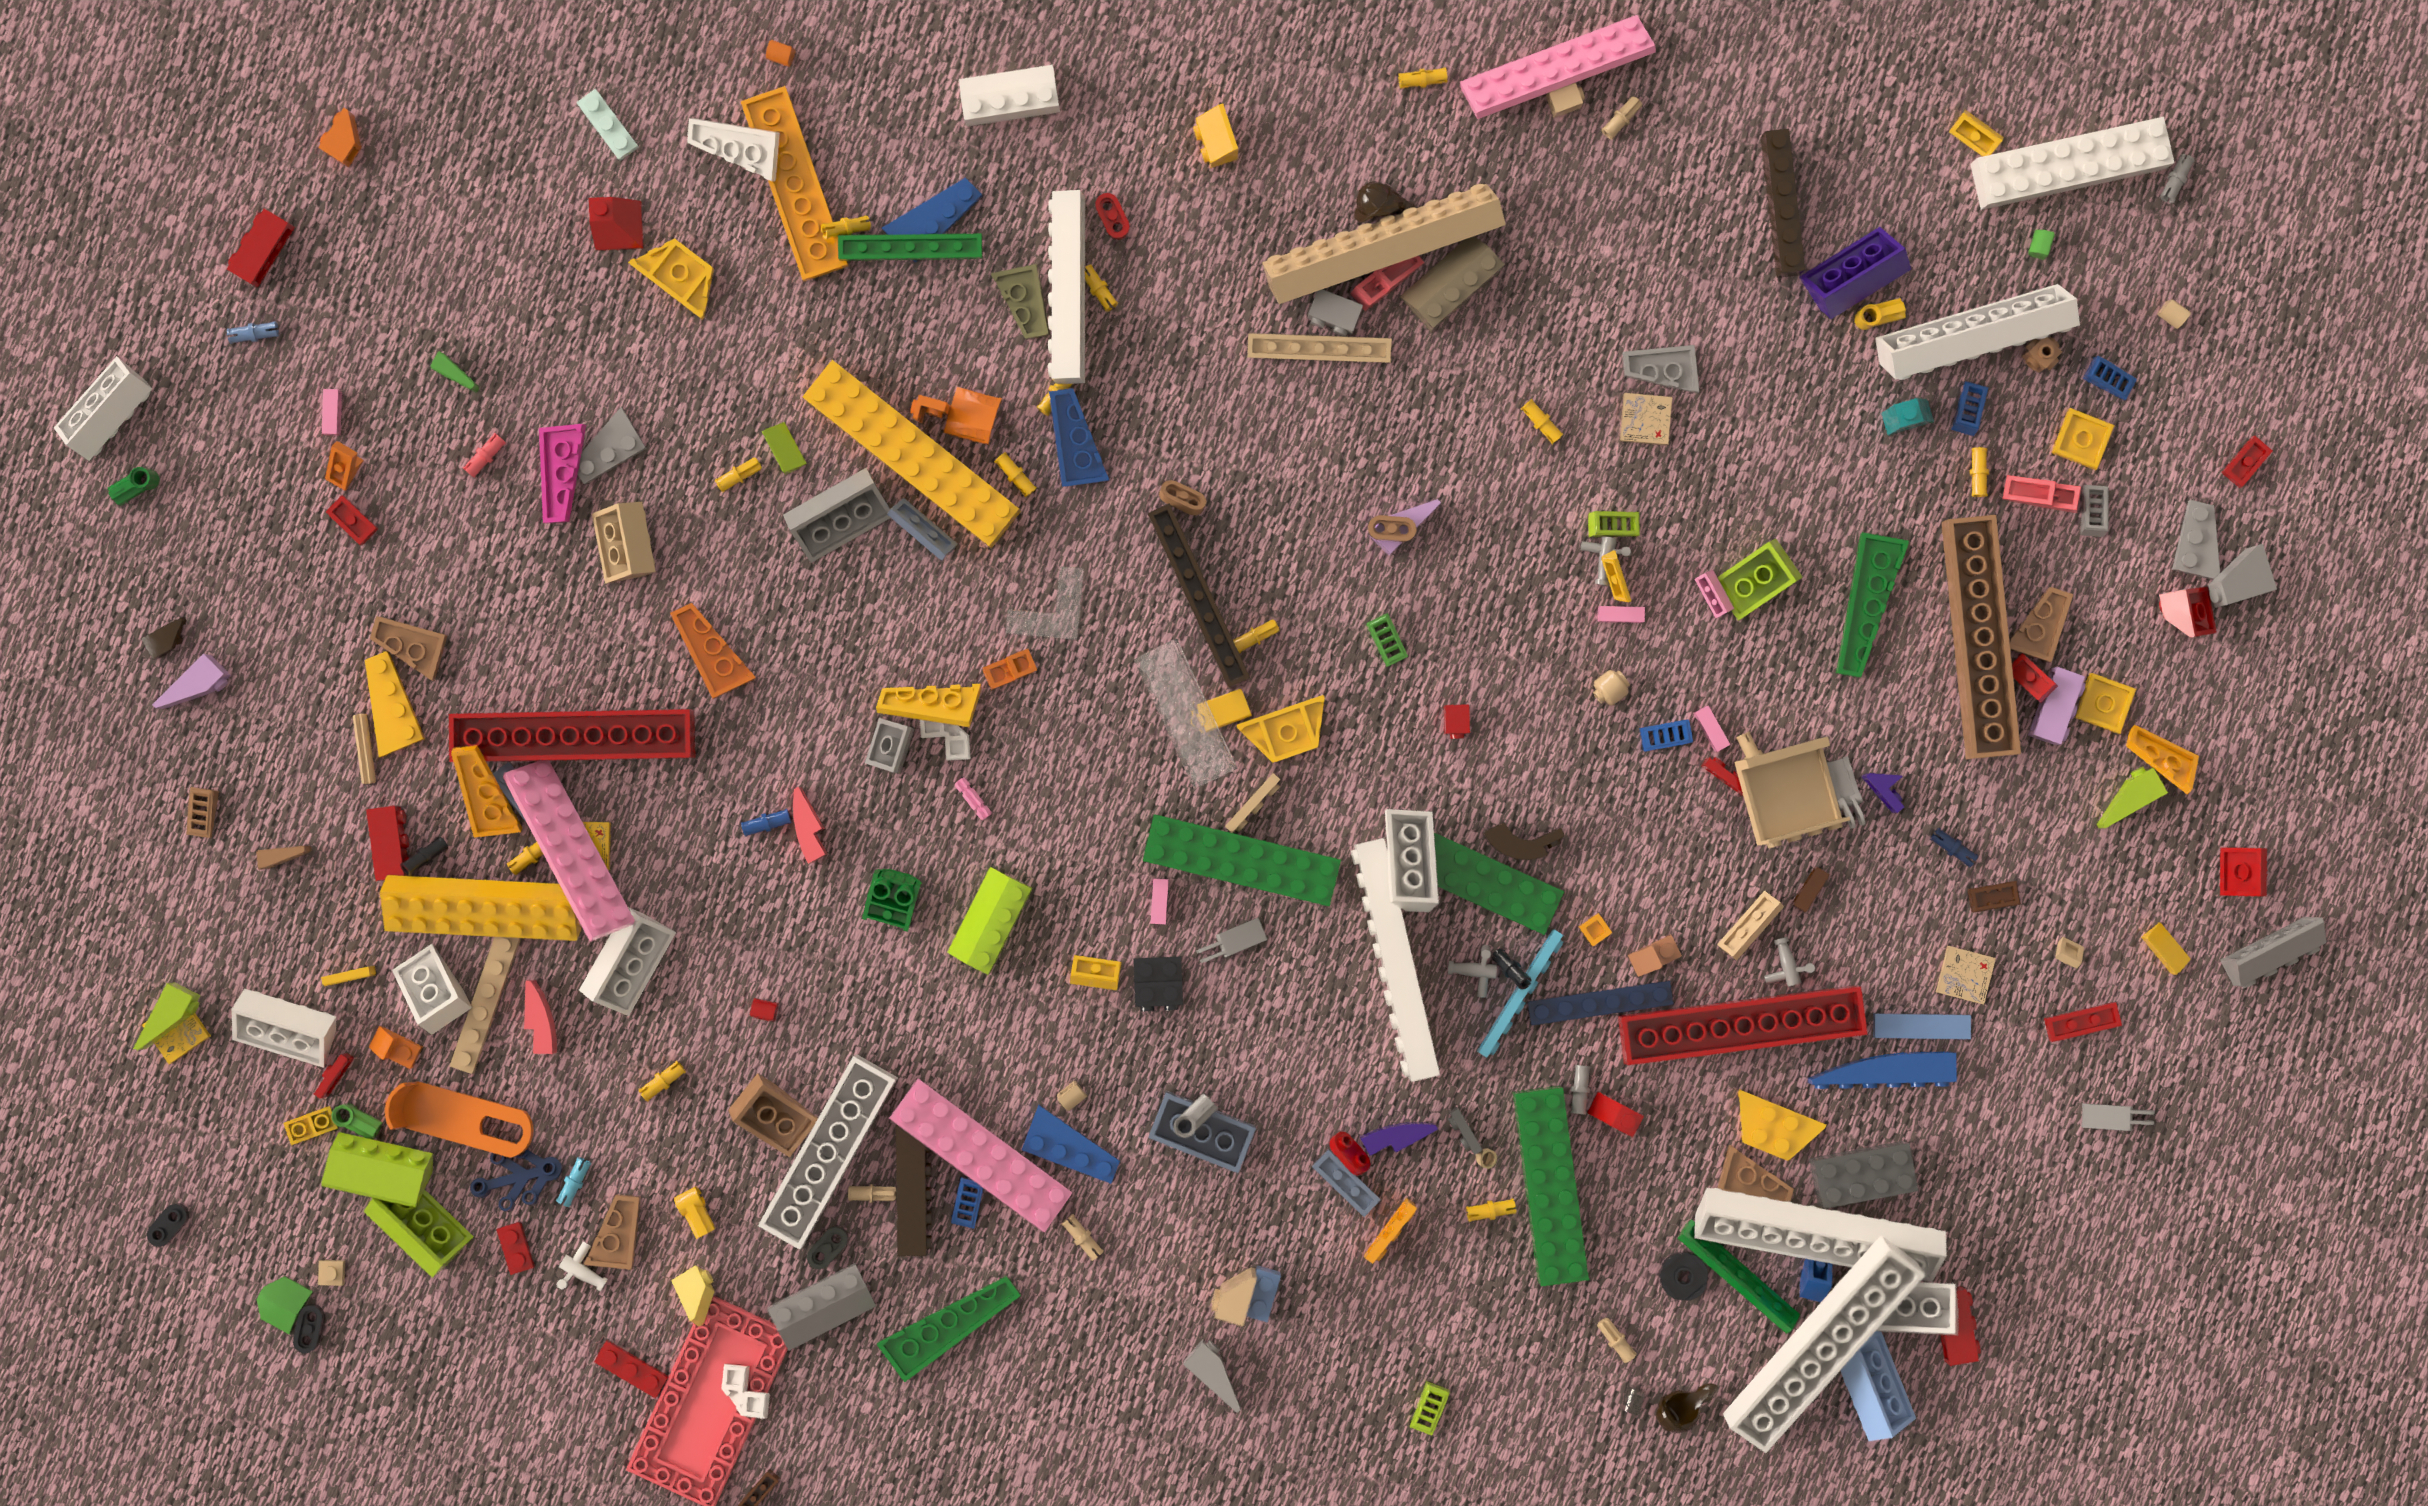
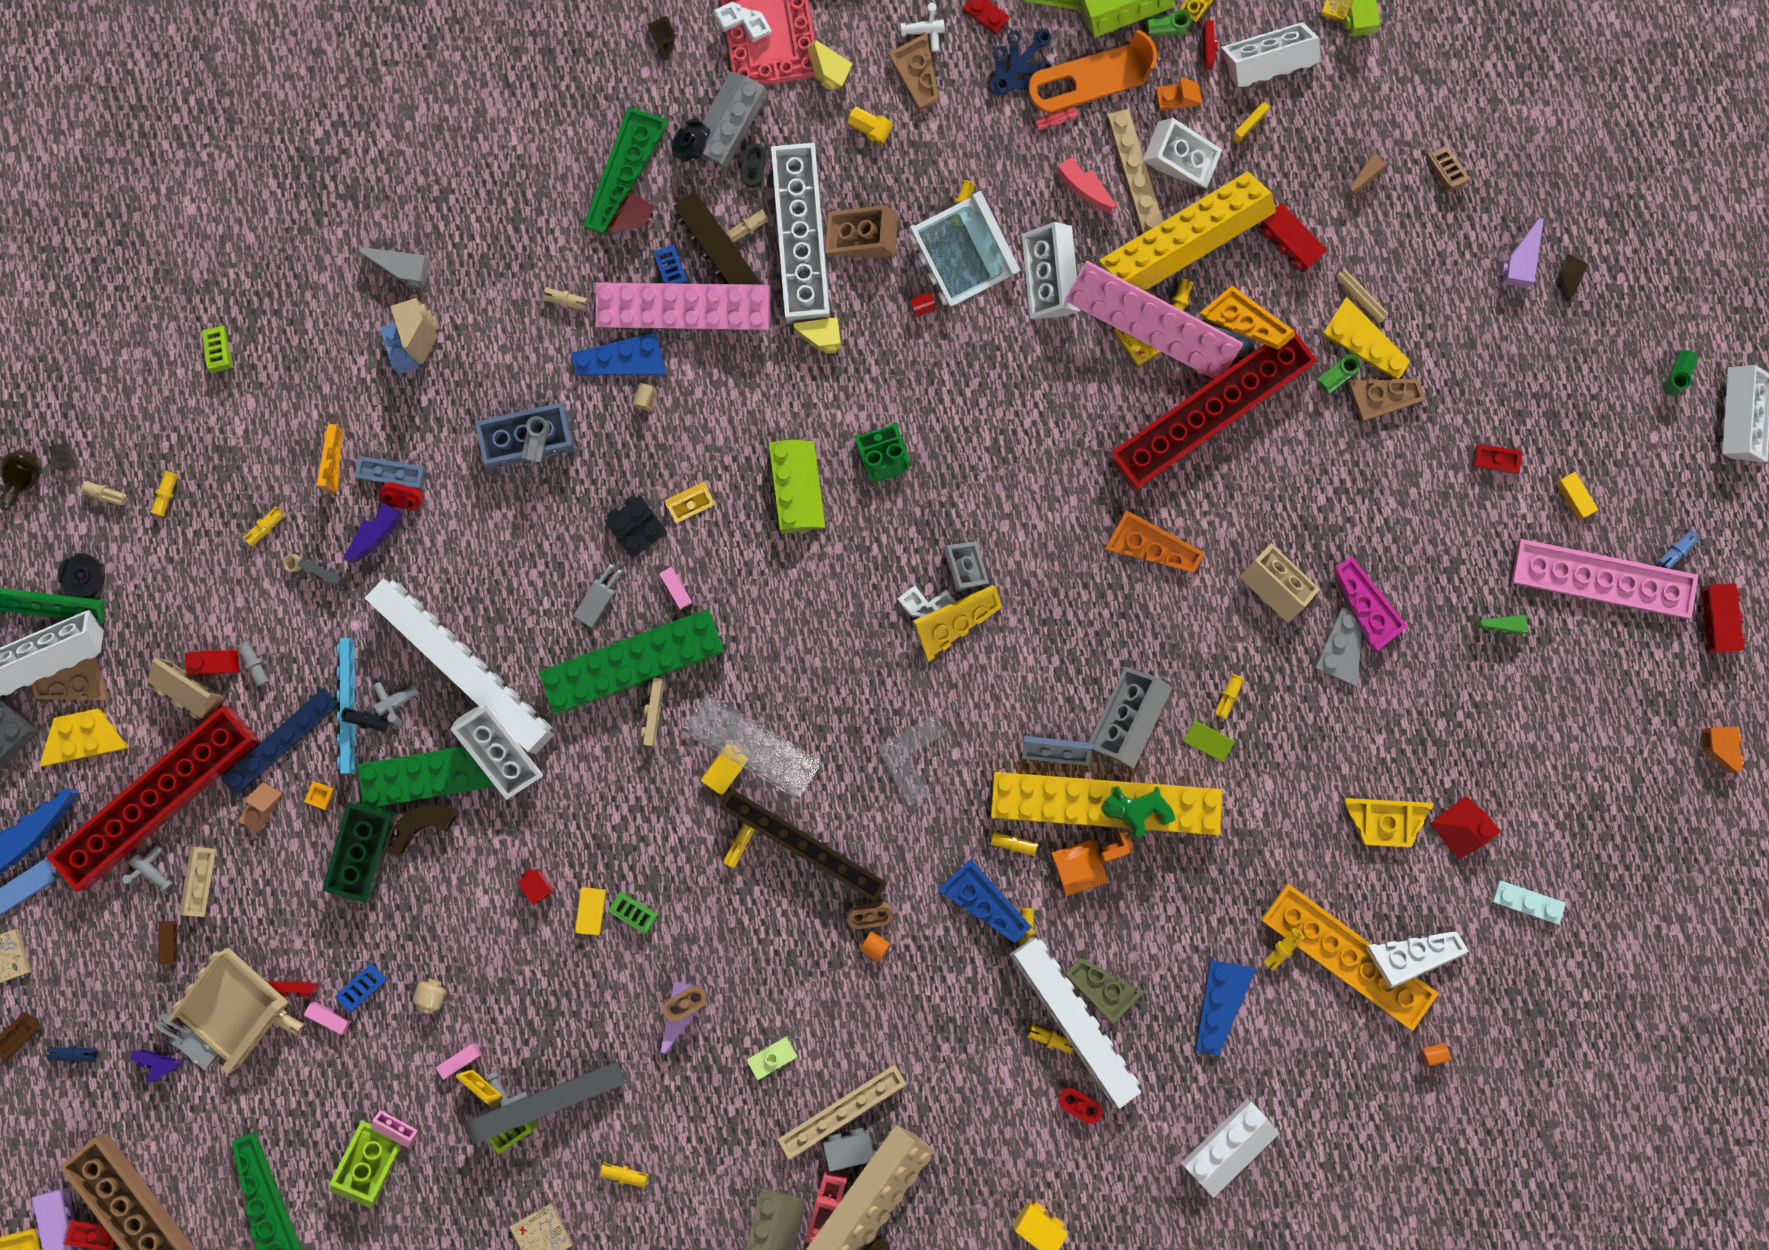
camera: 150 degrees right, 5 degrees down
(306, 440) = (1576, 496): none -> yellow slope
(331, 412) = (1574, 530): bright pink piece -> none
(337, 352) = (1604, 579): none -> bright pink plate
(342, 465) = (1535, 495): orange slope -> none
(424, 856) = (1258, 245): black pin -> none
(437, 691) = (1338, 374): none -> bright green piece
(484, 455) = (1434, 577): coral pin -> none
(521, 1102) = (1056, 118): none -> coral axle
(573, 1182) = (976, 87): medium azure pin -> none
(692, 1035) = (963, 250): none -> clear light blue panel
(766, 822) = (1019, 444): blue pin -> none
(807, 826) = (985, 462): coral slope -> none
(826, 1430) = (663, 35): none -> dark brown slope
(858, 1308) = (689, 142): none -> black plate
(873, 1045) = (820, 334): none -> light yellow slope
(888, 427) = (1136, 810): none -> green animal
(910, 247) = (1221, 968): green plate -> none
(971, 1275) = (631, 214): none -> dark red slope
(973, 798) = (873, 570): bright pink axle -> none
(1009, 669) = (914, 688): orange slope -> none
(1196, 468) = (874, 946): none -> orange brick
(1286, 730) = (665, 787): yellow wing -> none
(1349, 434) = (772, 1058): none -> yellowish green plate
(1423, 666) = (590, 911): none -> yellow slope
(1550, 1185) = (228, 575): green brick -> none
(1561, 1302) = (164, 493): none -> yellow pin
(1568, 526) = (544, 1102): none -> dark grey beam
(1590, 853) = (359, 851): none -> dark green brick
(1655, 1106) = (183, 689): none -> tan slope

